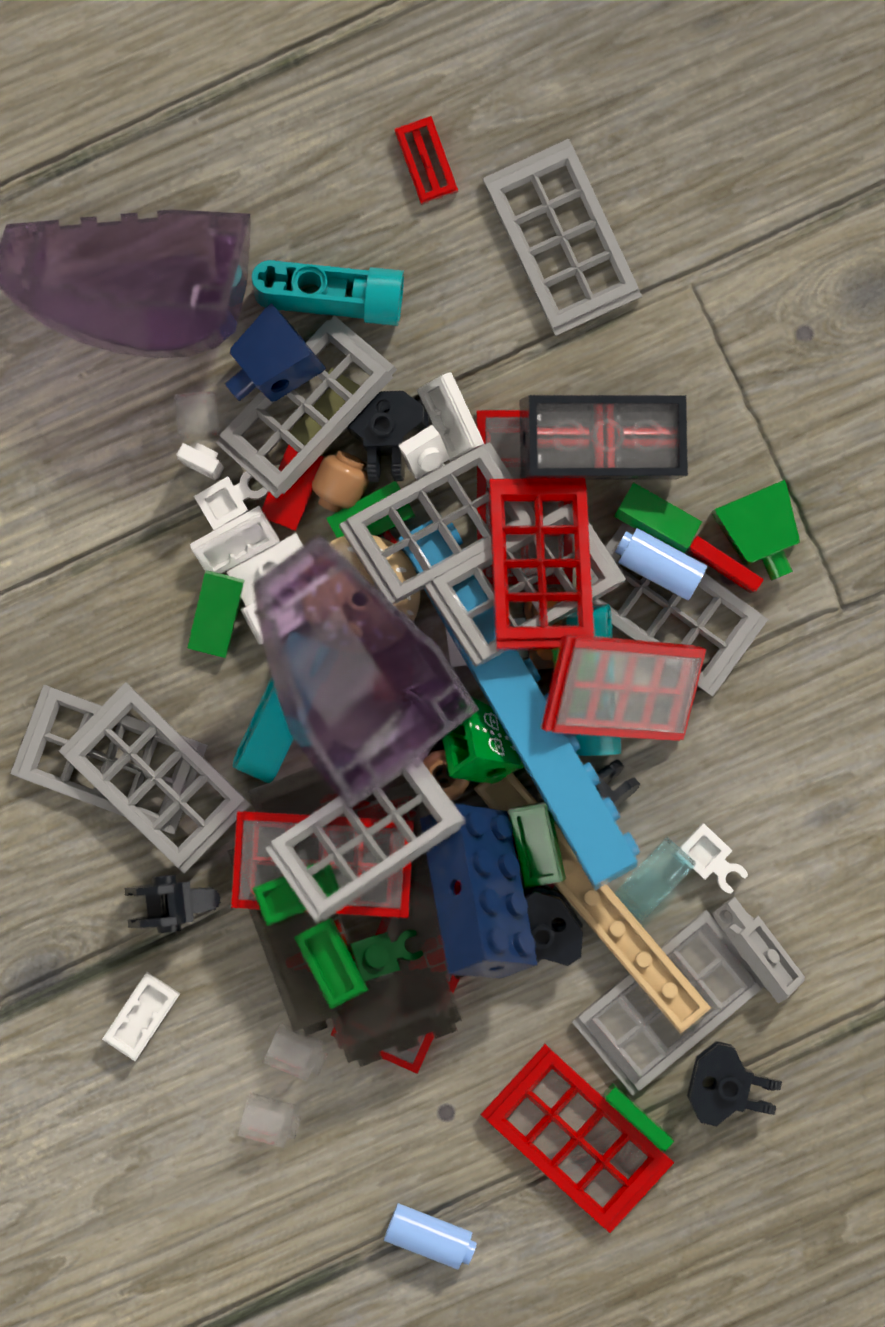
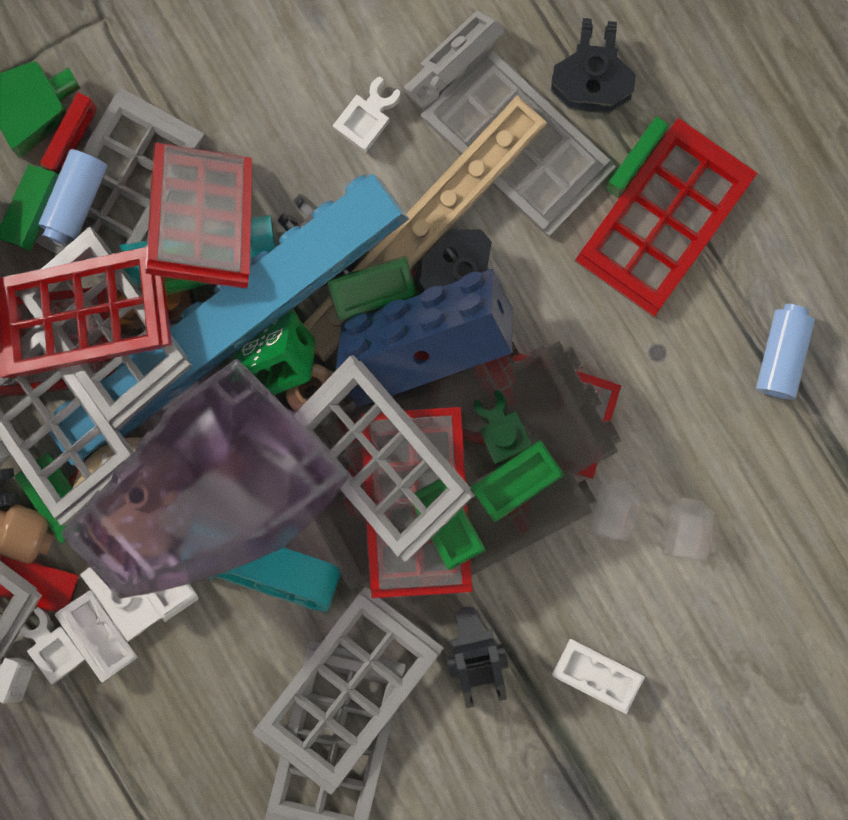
camera: 90 degrees left, 5 degrees down
(216, 614) = (172, 647): green tile -> none
(654, 878) = (397, 168): clear light blue tile -> none

